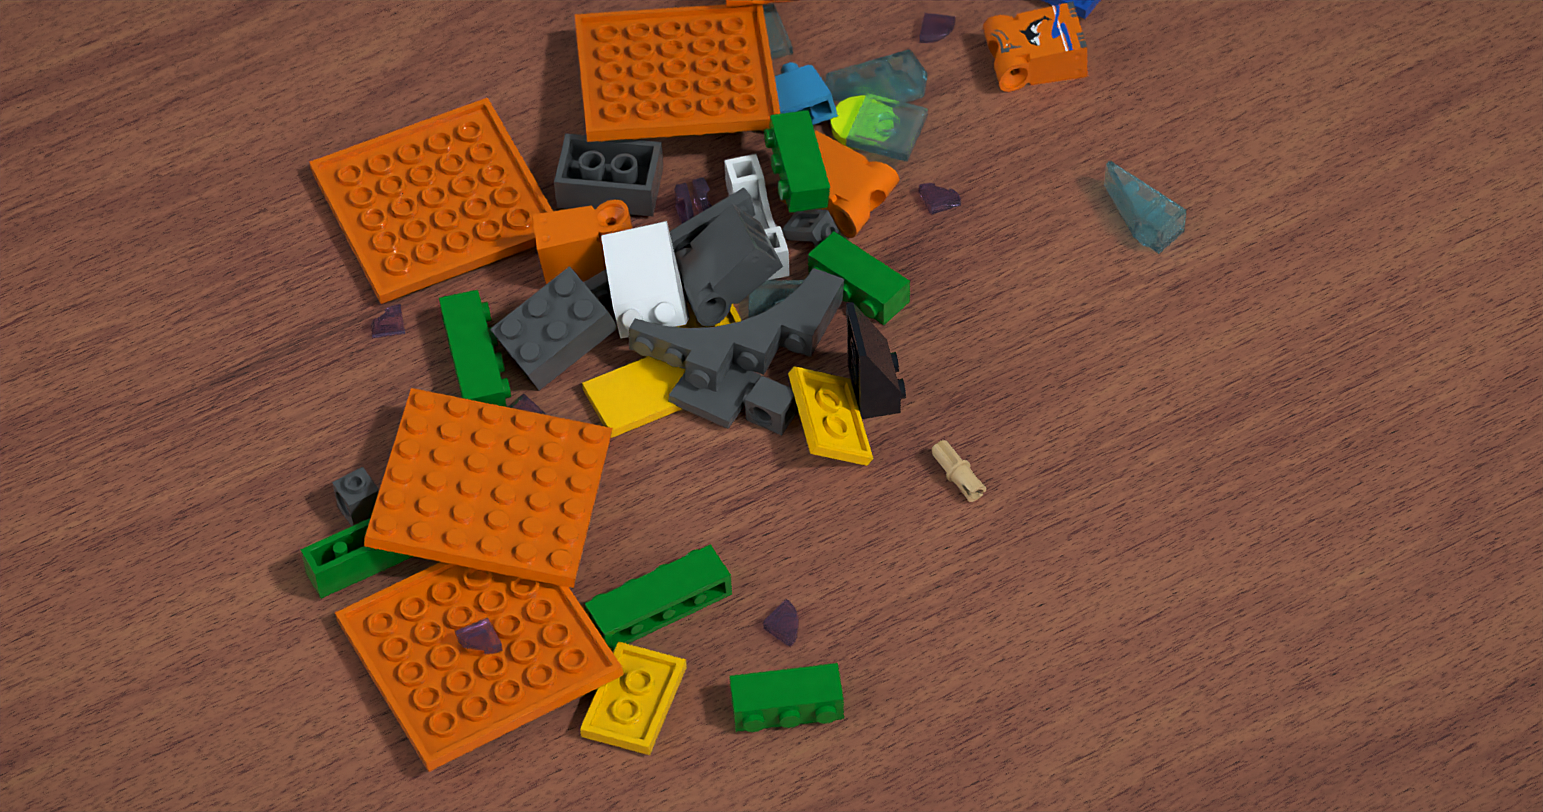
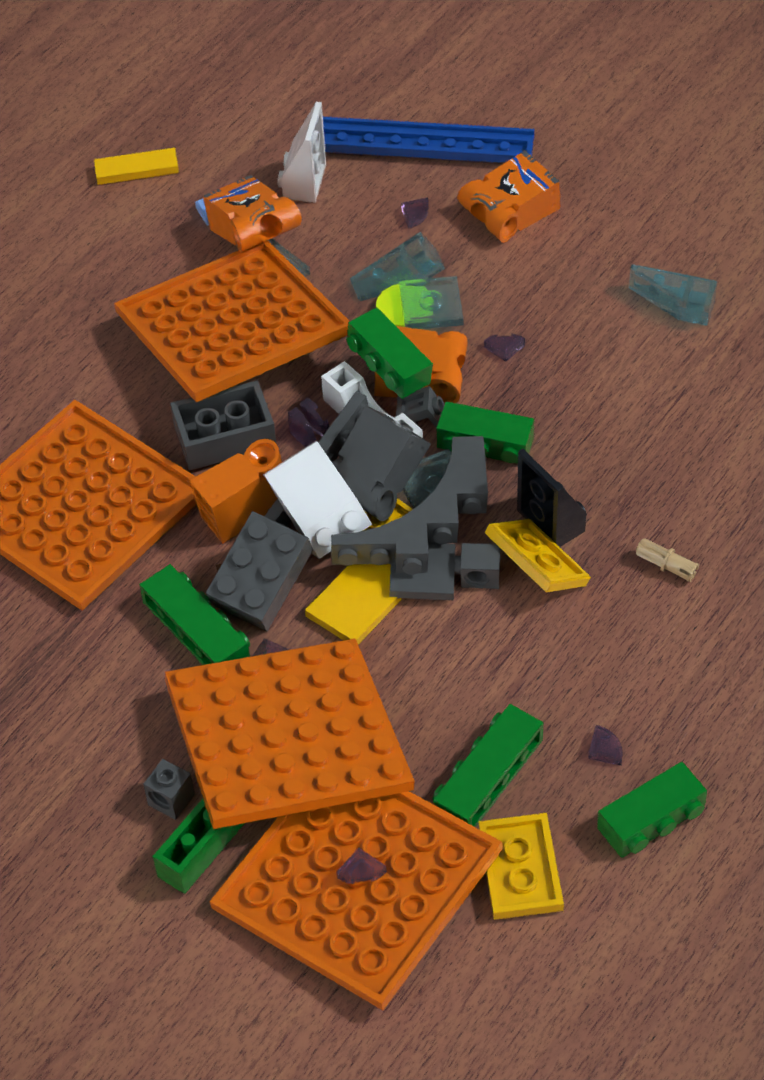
camera: 25 degrees left, 0 degrees up
(389, 323) = (102, 624): clear purple tile -> none
(804, 90) = (349, 296): dark azure torso -> none

